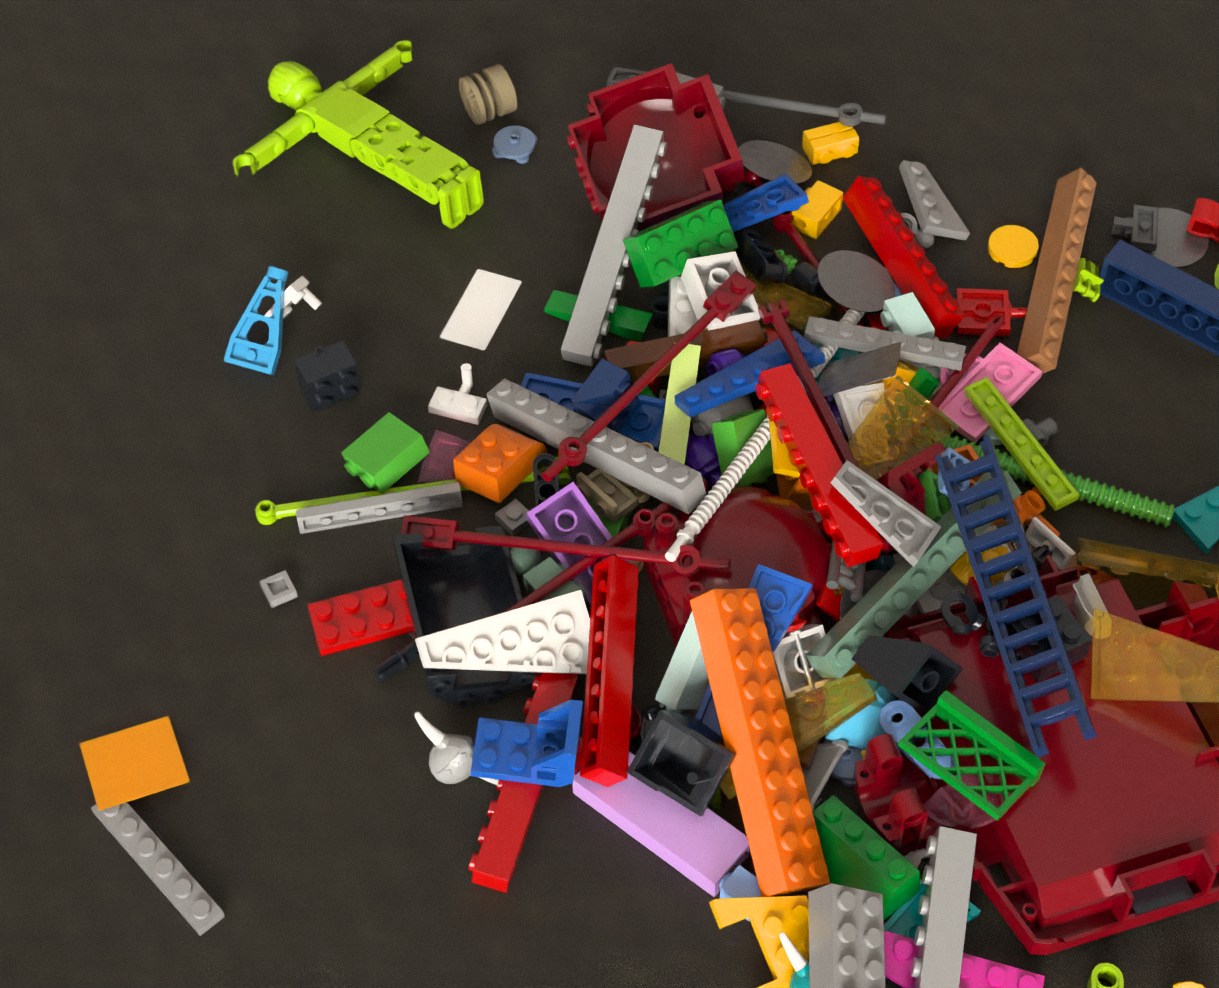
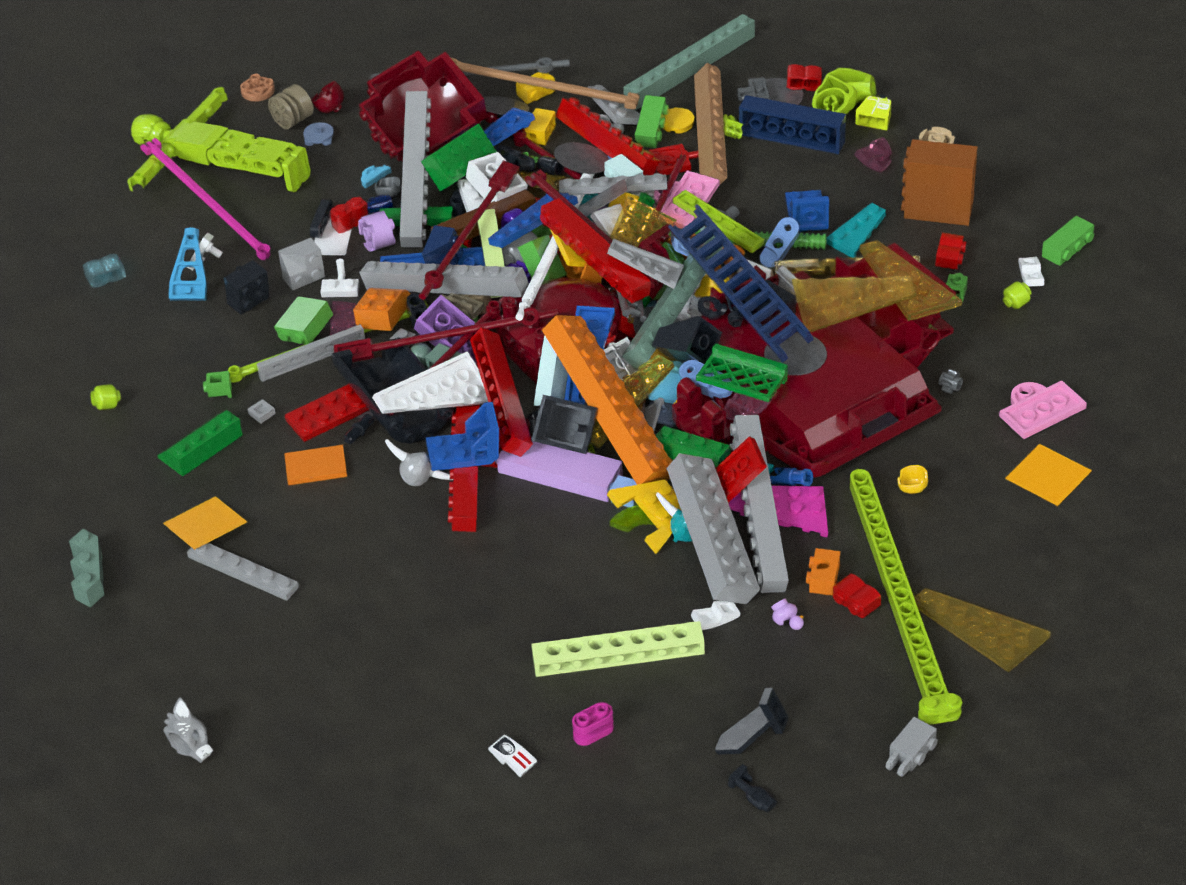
camera: 15 degrees left, 10 degrees down
(79, 504) = (105, 397): none -> lime head
(156, 292) = (104, 270): none -> clear light blue brick
(179, 620) = (202, 443): none -> green slope
(236, 526) = (218, 384): none -> bright green brick
(283, 122) = (154, 147): none -> dark pink hinge
(321, 704) = (315, 465): none -> orange tile
(414, 356) = (301, 263): none -> light grey slope
(459, 50) = (257, 88): none -> nougat tile
(469, 284) = (321, 218): none -> black beam
(508, 289) = (347, 215): none -> red brick
(535, 328) = (376, 231): none -> lavender brick
(544, 93) = (329, 98): none -> dark red cylinder
(554, 280) = (378, 202): none -> clear blue brick
(566, 227) = (373, 174): none -> medium azure tile
(575, 257) = (389, 186): none -> dark grey hair
(734, 942) = (630, 518): none -> clear neon green tile
(920, 929) = (740, 468): none -> red plate
(953, 202) = (630, 100): none -> medium nougat hinge
(974, 243) = (651, 121): none -> bright green brick
(1003, 945) = (792, 476): none -> blue piece
(1057, 154) = (692, 59): none -> sand green brick
(1067, 747) = (802, 357): none -> flat silver sticker
(1082, 522) = (780, 235): none -> medium blue piece
(1158, 453) = (808, 209): none -> blue bracket

